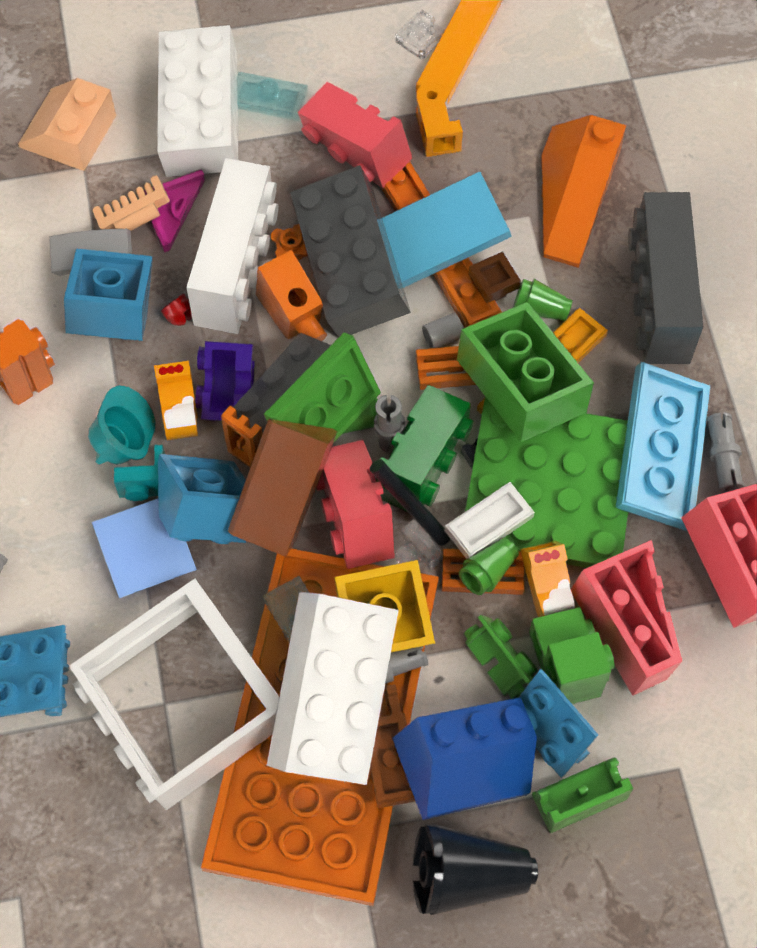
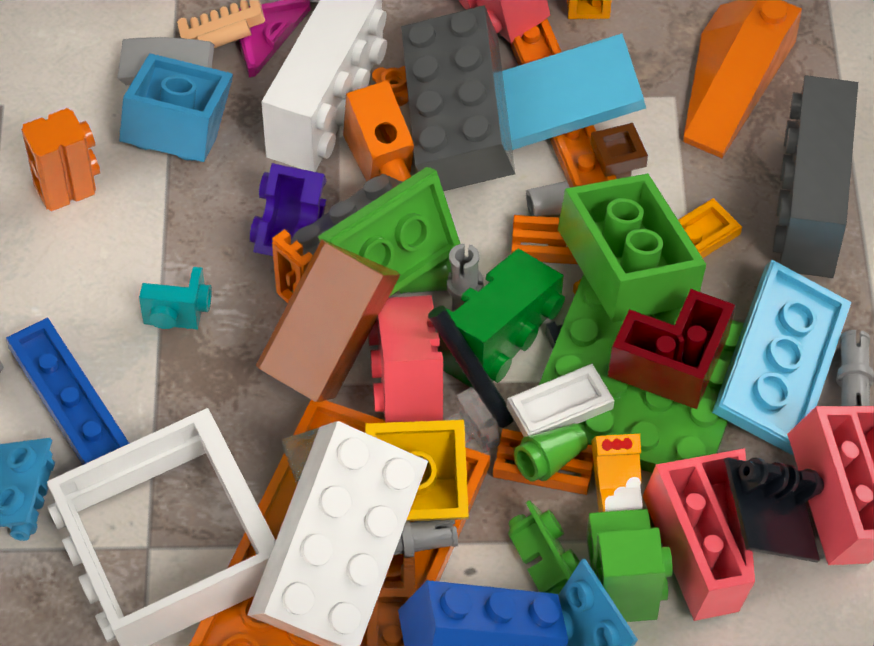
camera: 10 degrees right, 10 degrees down
(69, 577) = (66, 391): none -> blue plate
(122, 427) = (161, 245): teal piece -> none
(140, 549) = (159, 376): light blue slope -> none
(177, 400) = (229, 226): light orange leg -> none
(178, 311) = (250, 136): red hinge -> none
(198, 497) = (229, 329): dark azure slope -> none
(543, 300) = (674, 183): bright green cone -> none
(580, 469) = (673, 358): none -> dark red brick
(685, 592) = (773, 506): none -> black hinge

